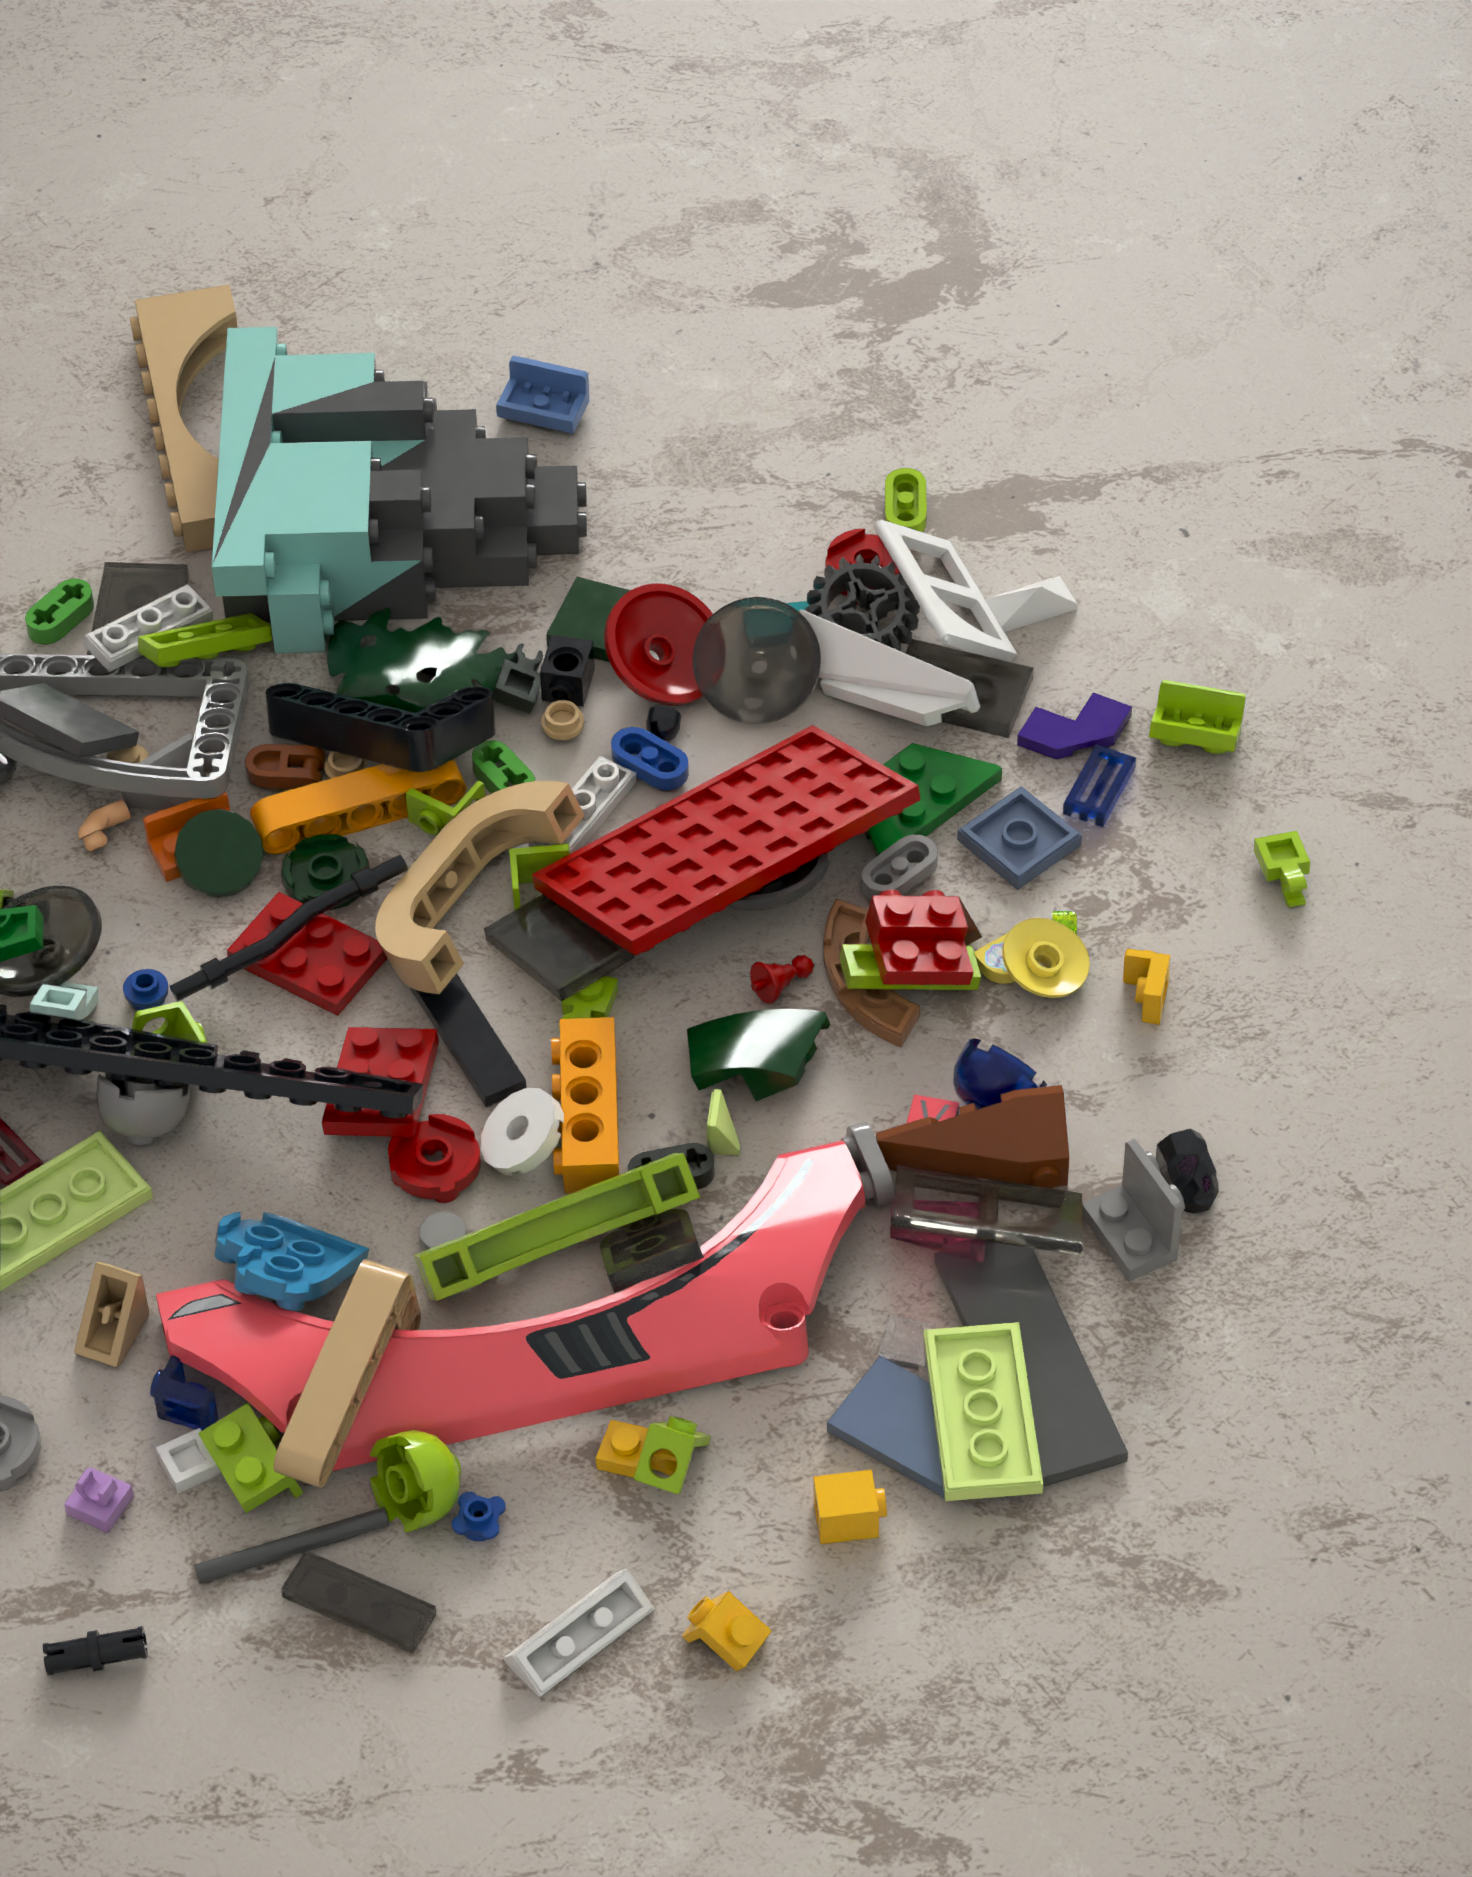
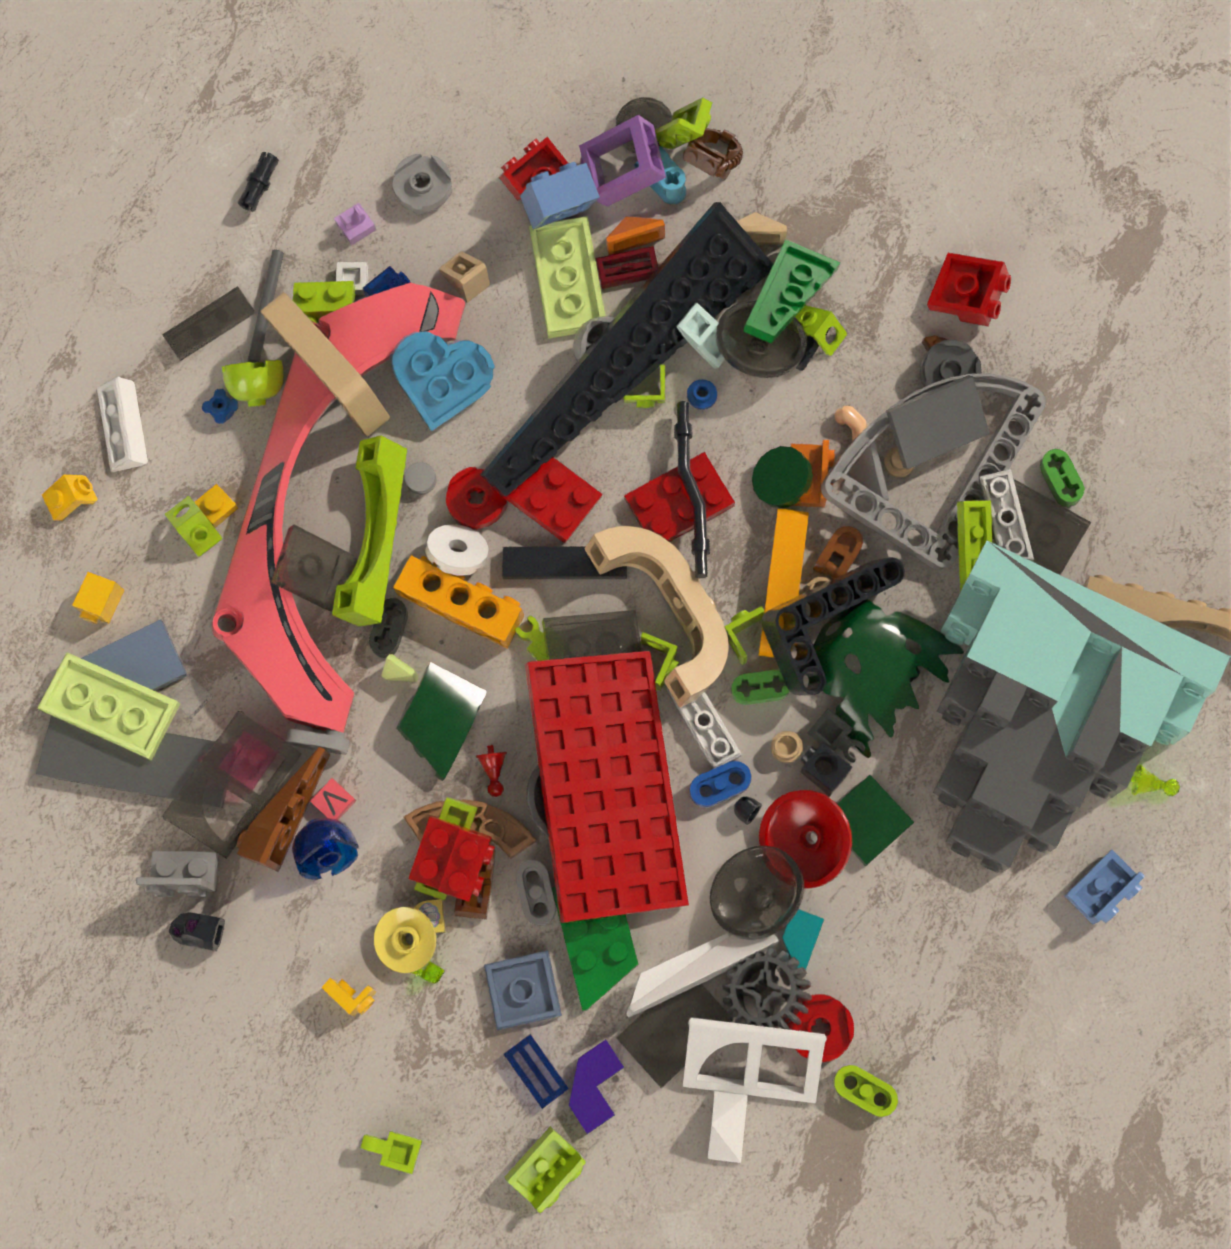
camera: 125 degrees right, 25 degrees up
(321, 865) = (741, 541): dark green tile -> none

